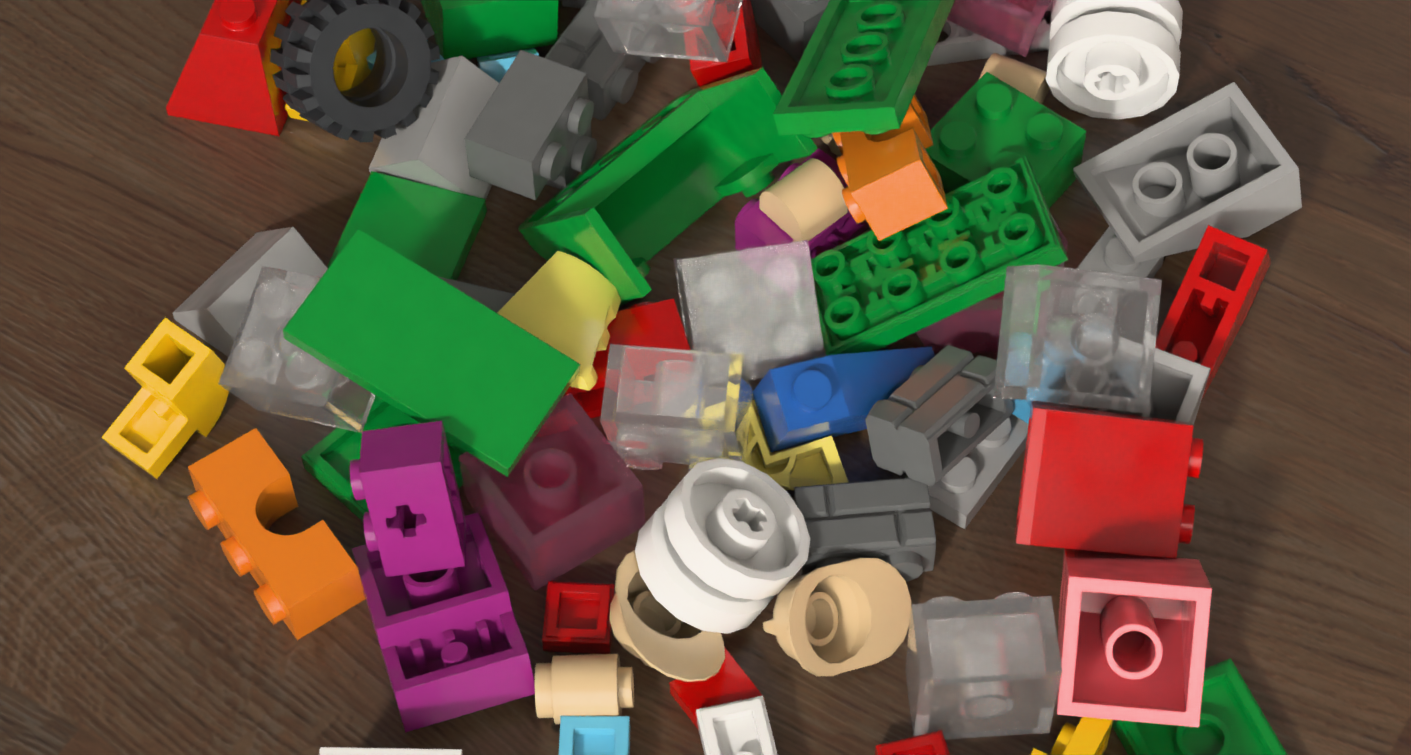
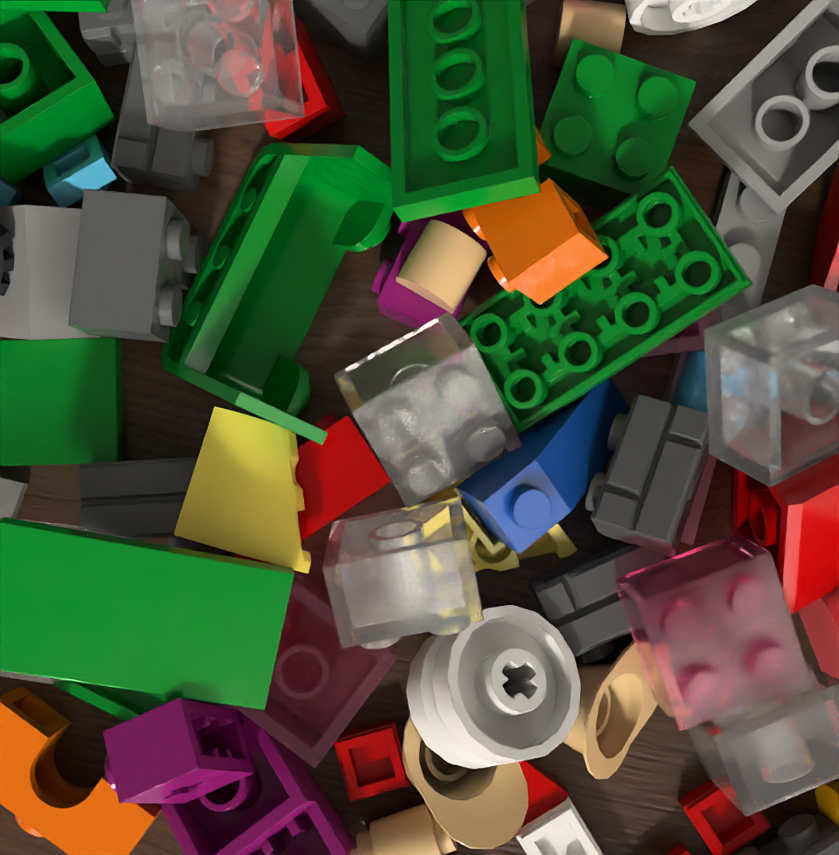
camera: 15 degrees left, 30 degrees up
(944, 533) = (712, 630): none -> clear pink brick

